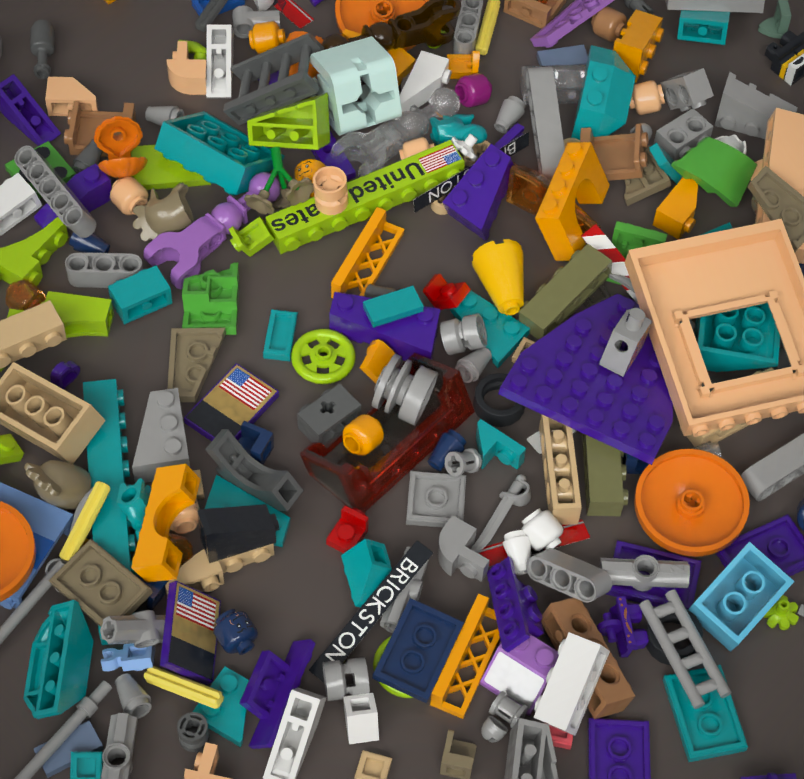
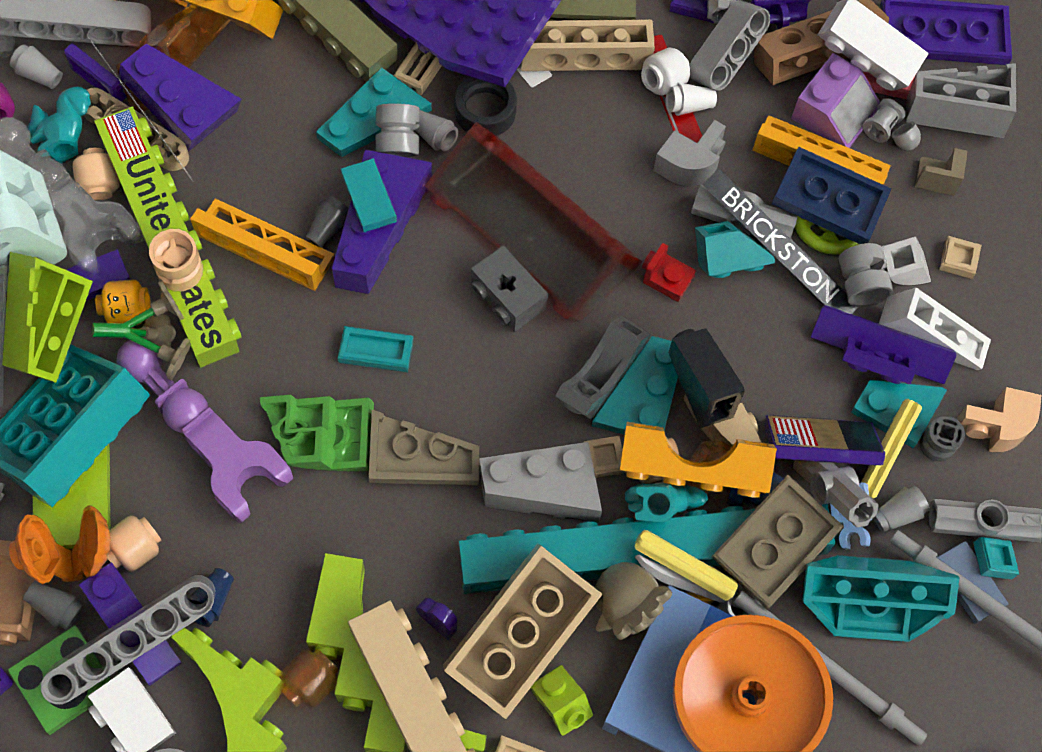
camera: 90 degrees left, 10 degrees up
(100, 269) = (257, 555): light grey beam -> none
(140, 294) = (311, 519): teal brick -> none
(164, 215) = (175, 492): dark tan piece -> none
(231, 401) = (487, 405): tile -> none
(235, 632) = (814, 392): dark blue head -> none
(252, 237) = (217, 379): lime bracket -> none
(256, 441) = (547, 376): dark blue panel -> none
(336, 371) = (403, 273): lime plate -> none
(363, 435) = (542, 247): light orange head -> none
(376, 359) = (426, 229): light orange tile -> none
(404, 389) = (489, 191): light grey wheel -> none
(435, 498) = (619, 181): light grey tile -> none
(444, 294) = (329, 149): red bracket -> none
(447, 443) = (555, 163): dark blue cone -> none
(459, 468) = (580, 147): light grey bush -> none
(466, 146) = (97, 110): white plant -> none
(495, 443) = (551, 114): teal slope -> none
(502, 274) = (315, 82): yellow cone -> none
(508, 498) = (630, 113): light grey sword -> none
(513, 606) = (774, 100): dark purple bracket -> none

